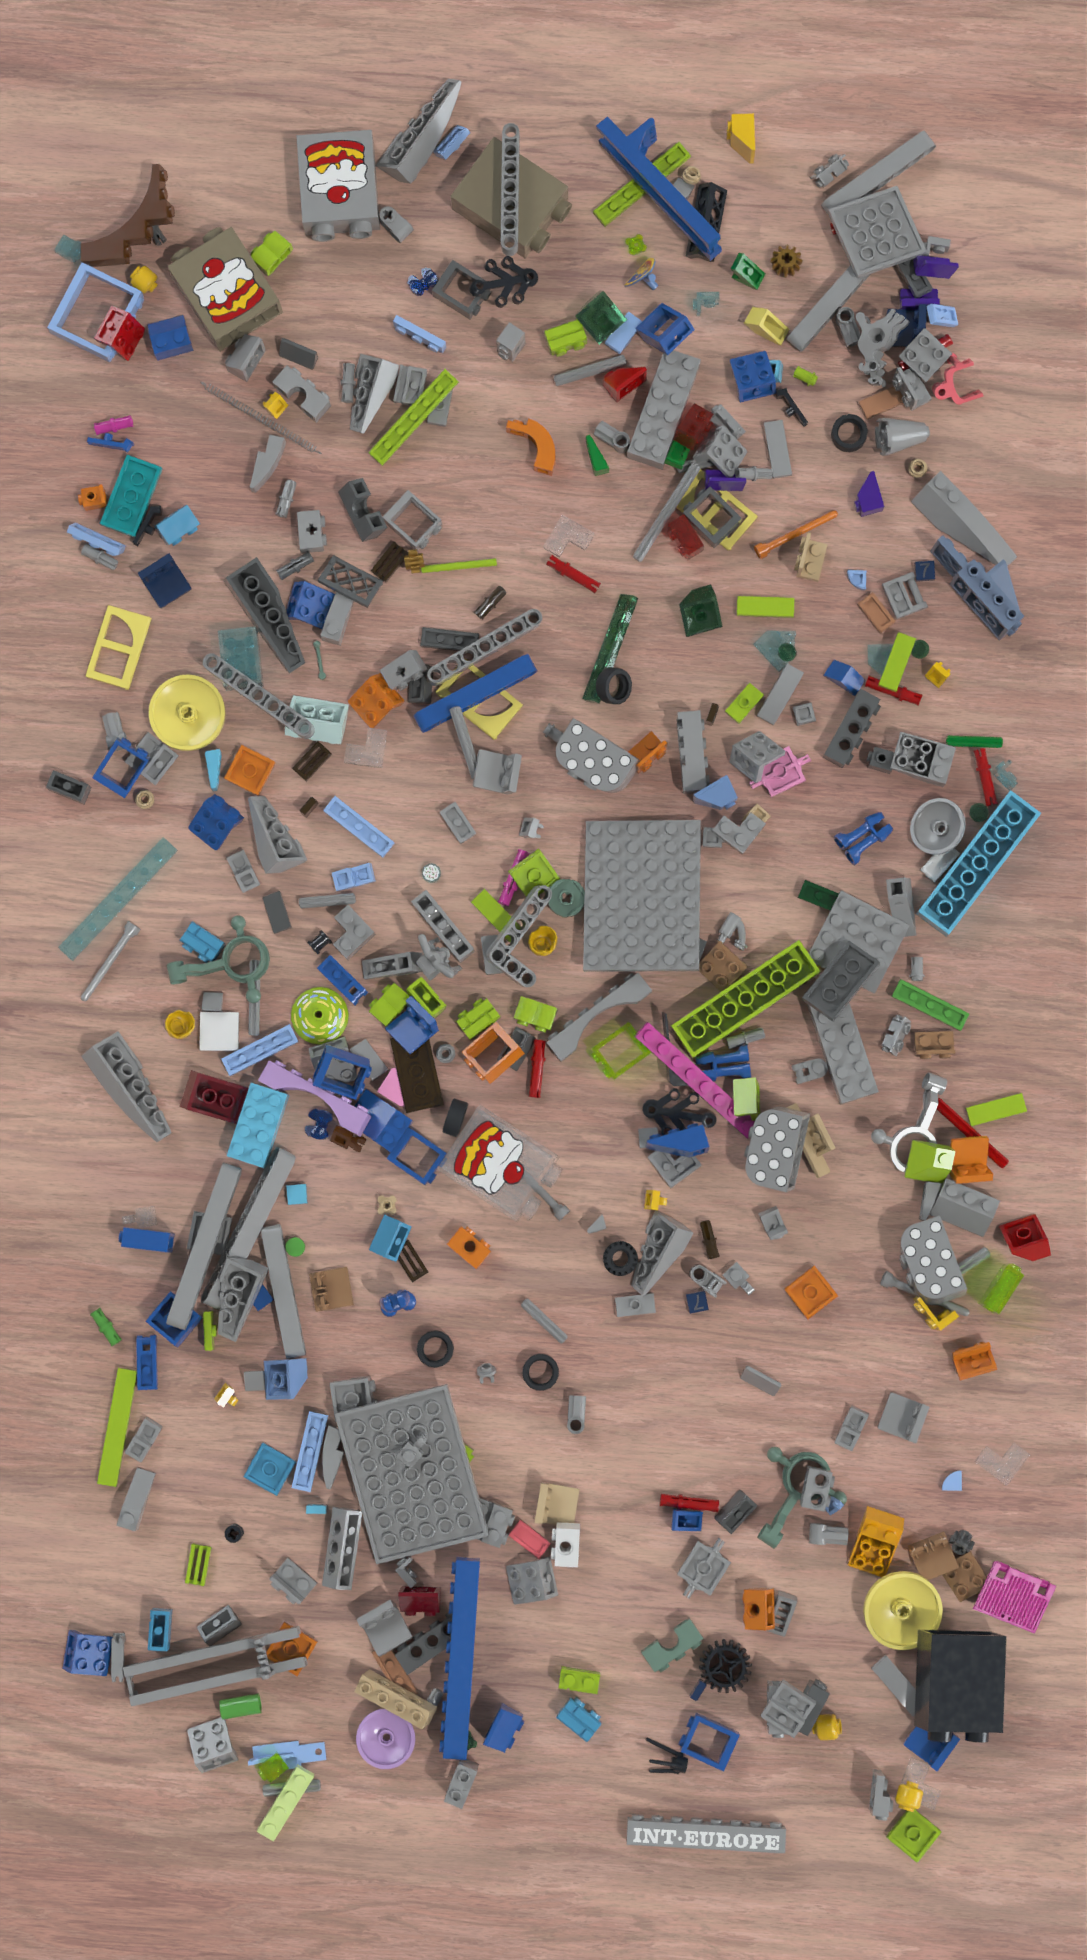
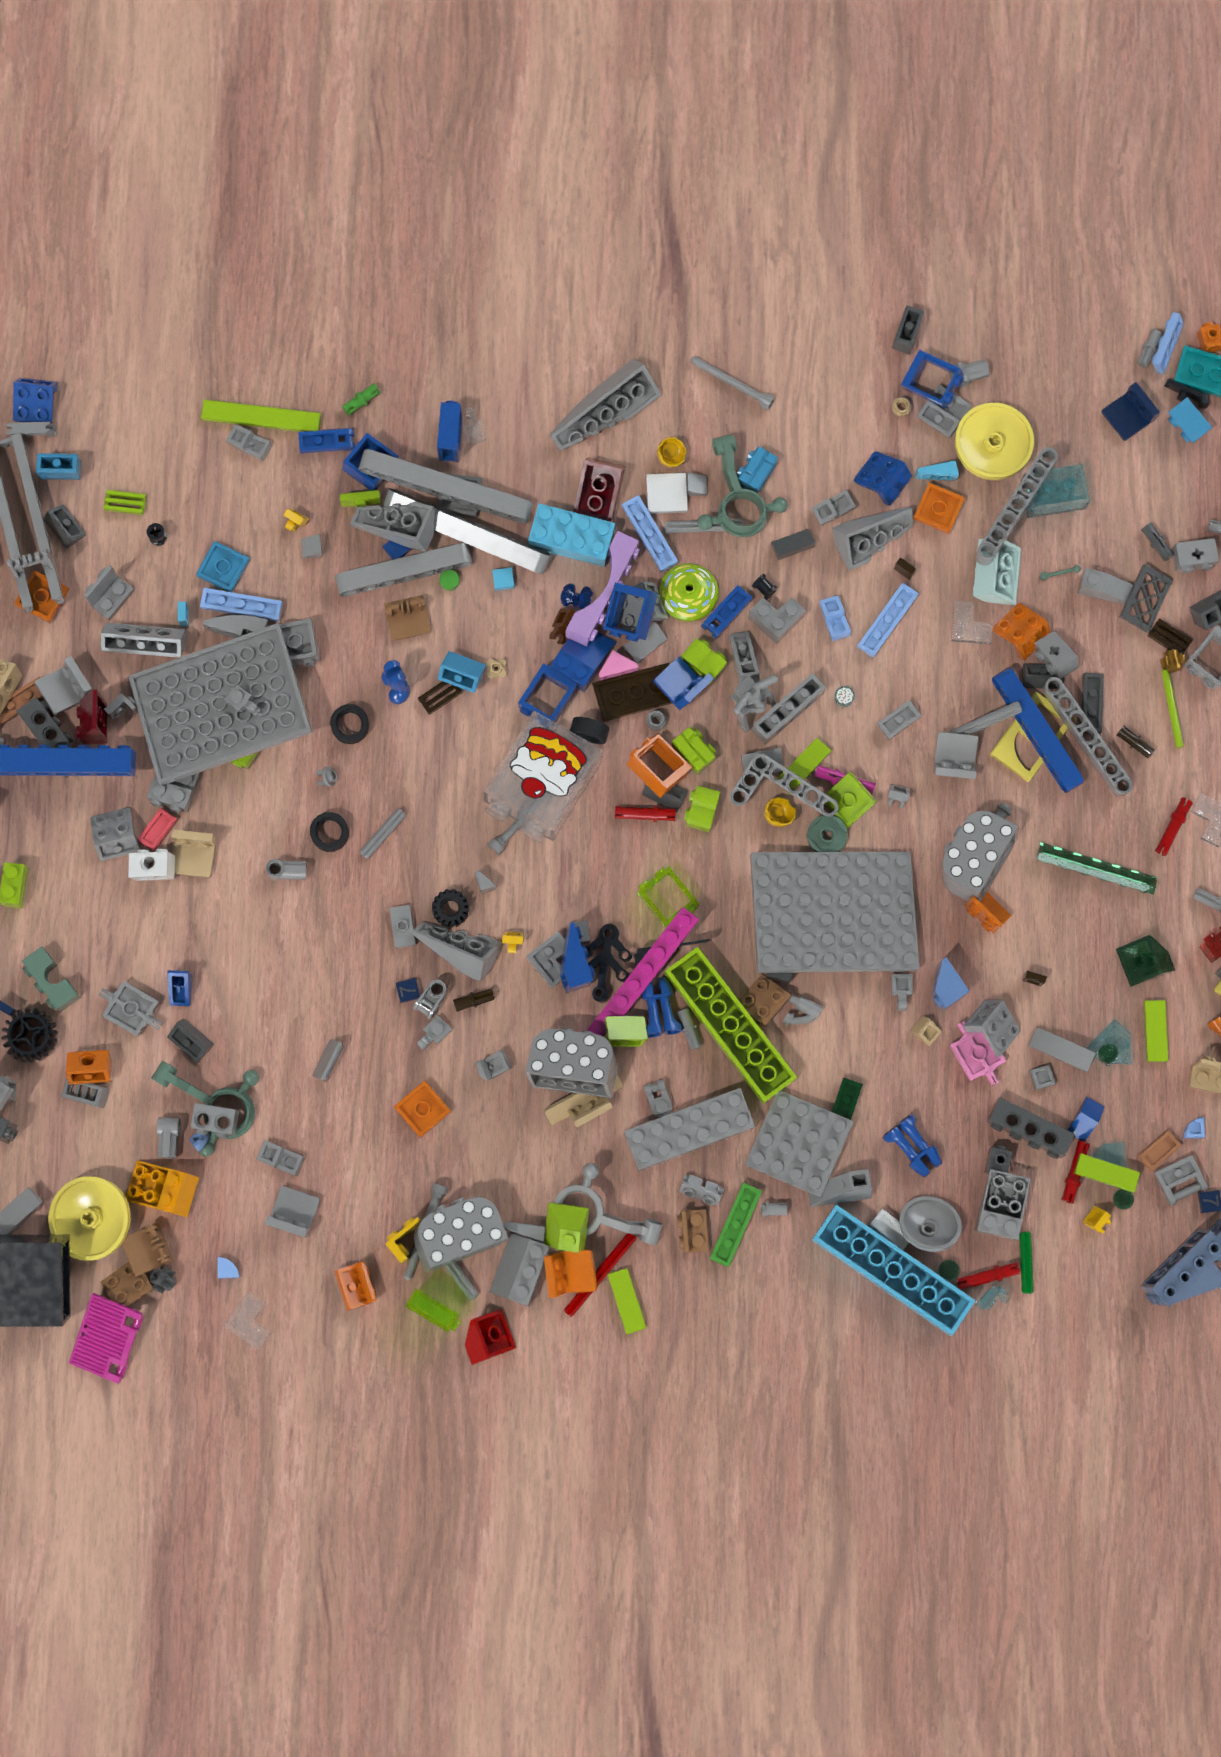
camera: 75 degrees right, 5 degrees down
(117, 899) = (797, 387): clear light blue tile -> none
(136, 1500) = (187, 437): light grey slope -> none
(139, 627) = (1080, 391): light yellow window -> none
(266, 611) = (1109, 513): dark grey wedge -> none
(284, 1378) = (315, 575): medium blue slope -> none
(301, 773) = (947, 575): dark brown tile -> none
(309, 604) = (1118, 557): blue bracket -> none
(328, 900) = (808, 593): light grey axle -> none
(426, 997) = (712, 695): lime brick -> none
(458, 1243) = (457, 741): orange brick -> none
(624, 689) = (1060, 859): black tyre -> none
(630, 992) = (676, 843): light grey arch -> none
(689, 1502) = (198, 986): red pin -> none
(691, 751) = (993, 958): light grey wedge -> none
(737, 836) = (904, 1011): light grey plate -> none
(744, 703) = (1049, 1013): lime plate -> none
(841, 981) = (755, 1123): dark grey plate -> none

